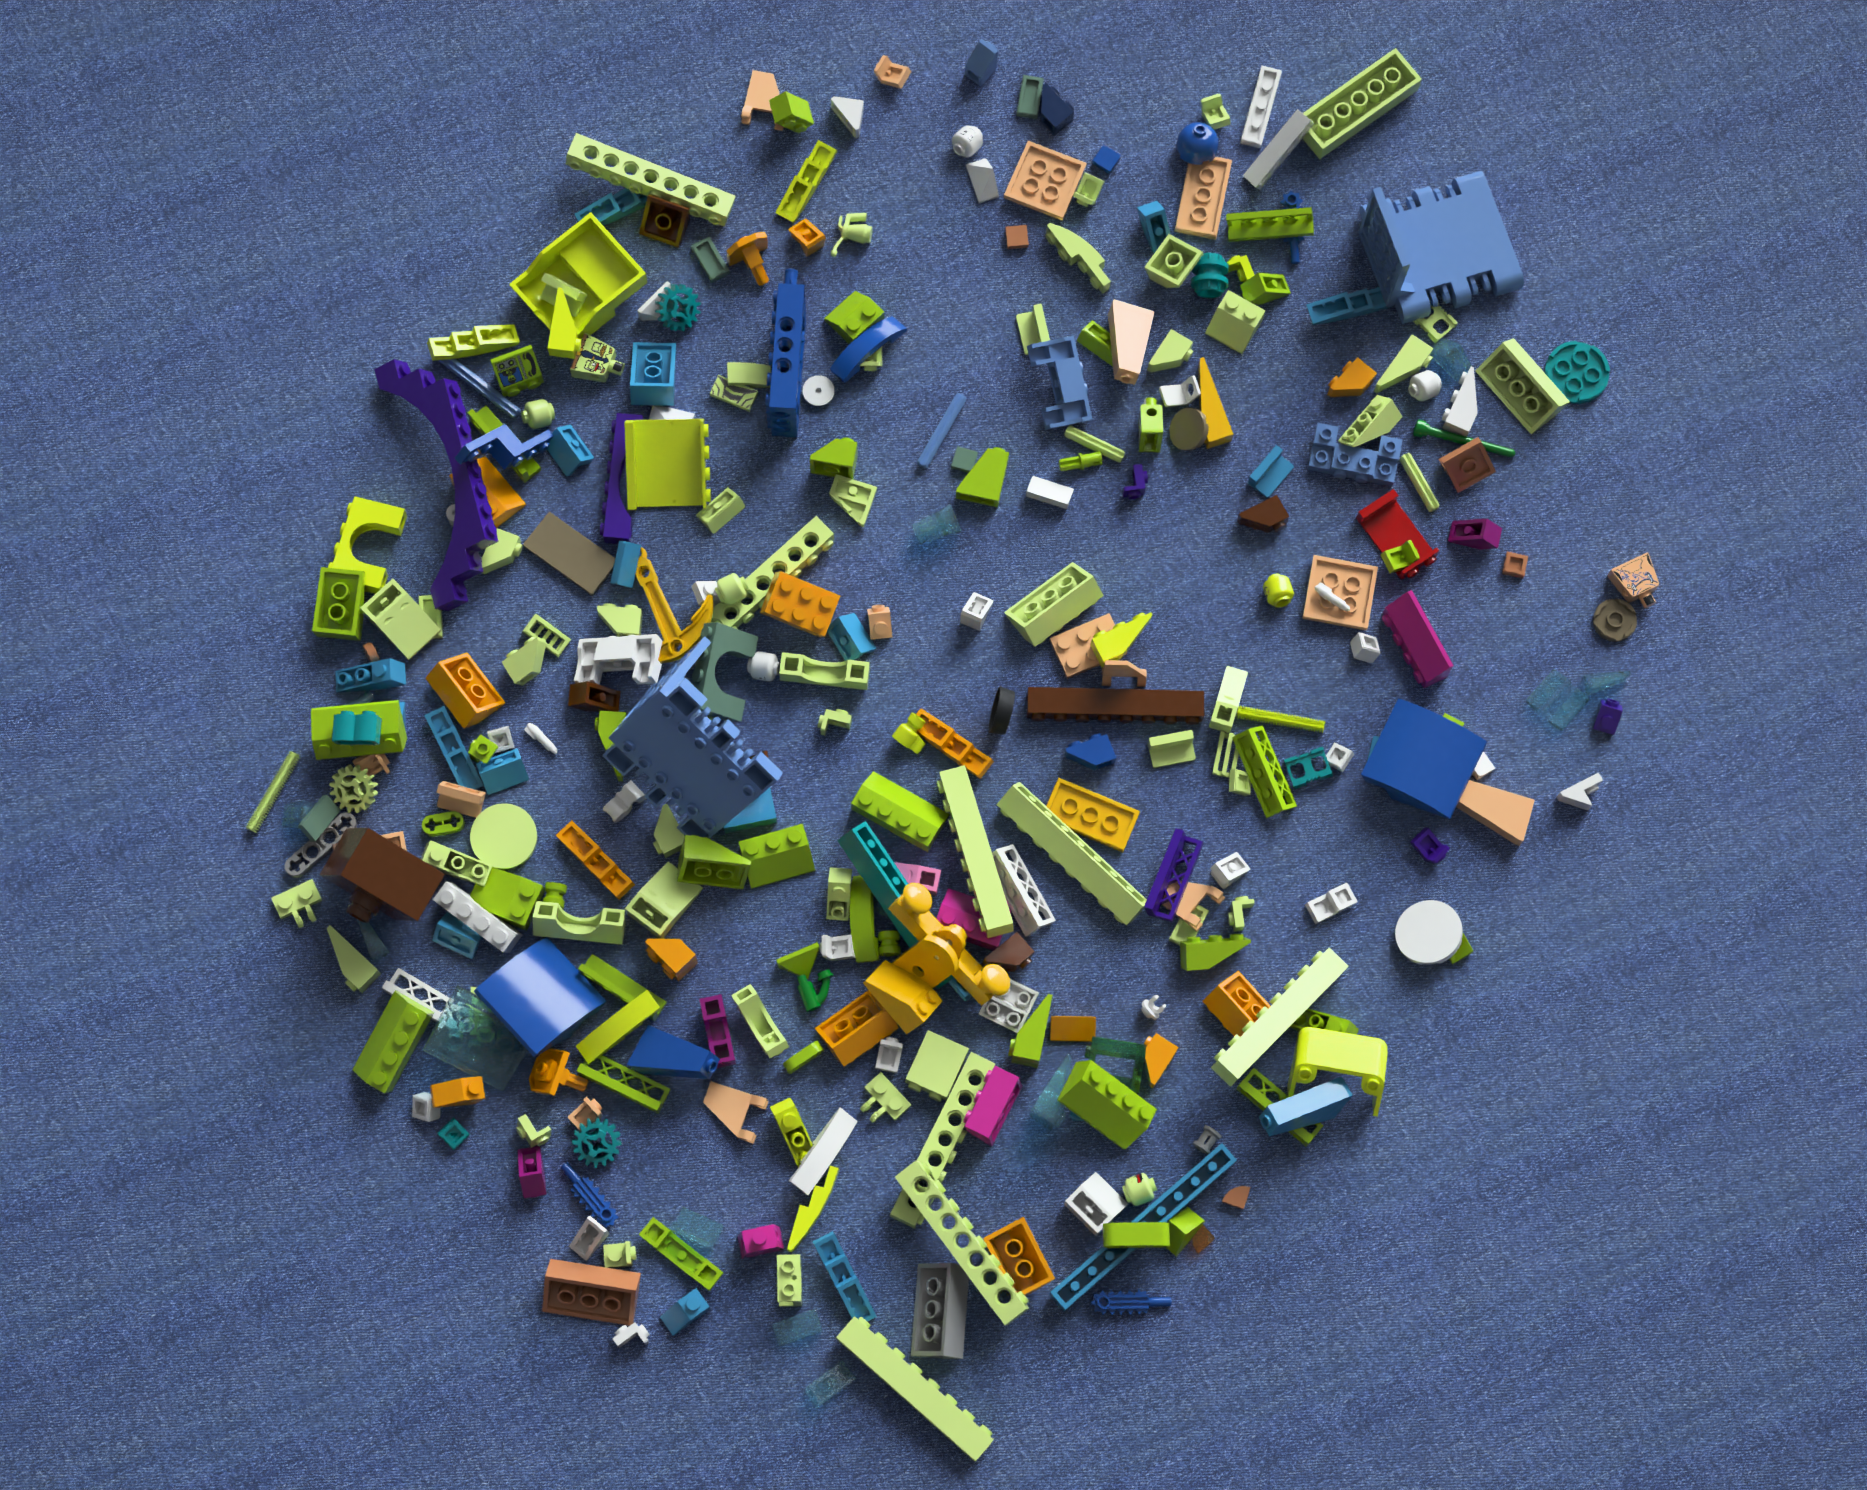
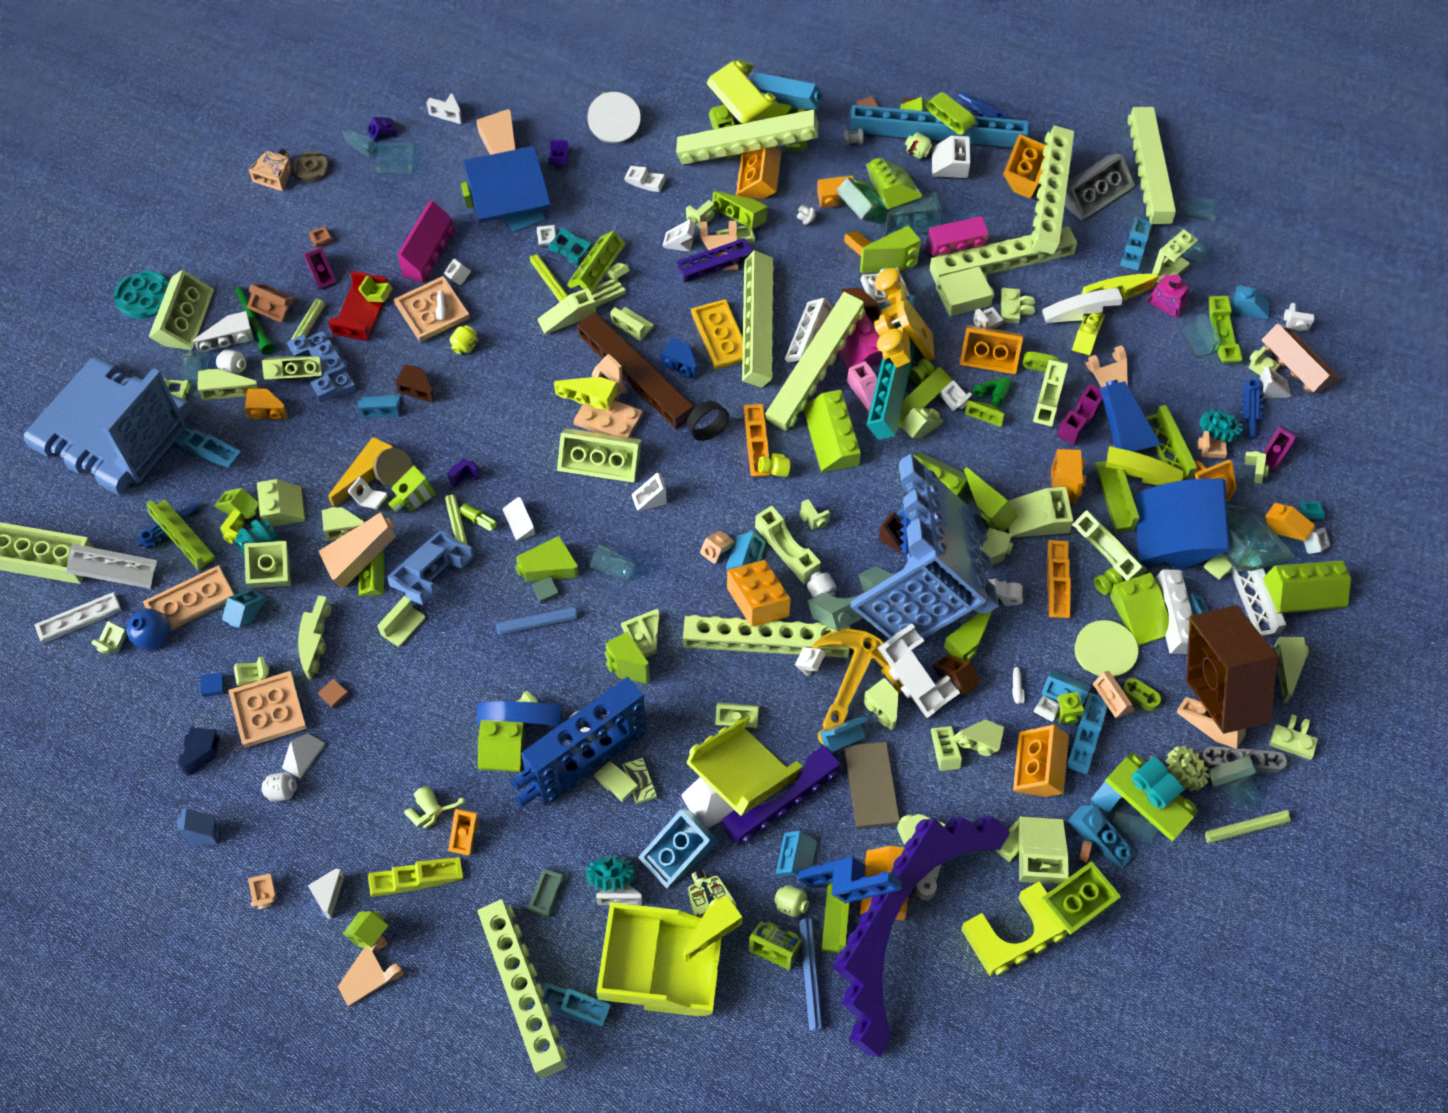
camera: 130 degrees left, 15 degrees down
(456, 863) = (1160, 660): yellowish green slope -> none
(472, 343) = (783, 1004): neon yellow slope -> none
(574, 297) = (680, 973): yellowish green panel -> none
(664, 221) = (546, 951): reddish brown slope -> none
(731, 589) = (793, 639): yellowish green head -> none
(748, 249) = (517, 860): light orange piece -> none
(902, 995) = (947, 328): yellow slope -> none
(1030, 97) = (199, 778): sand green tile -> none

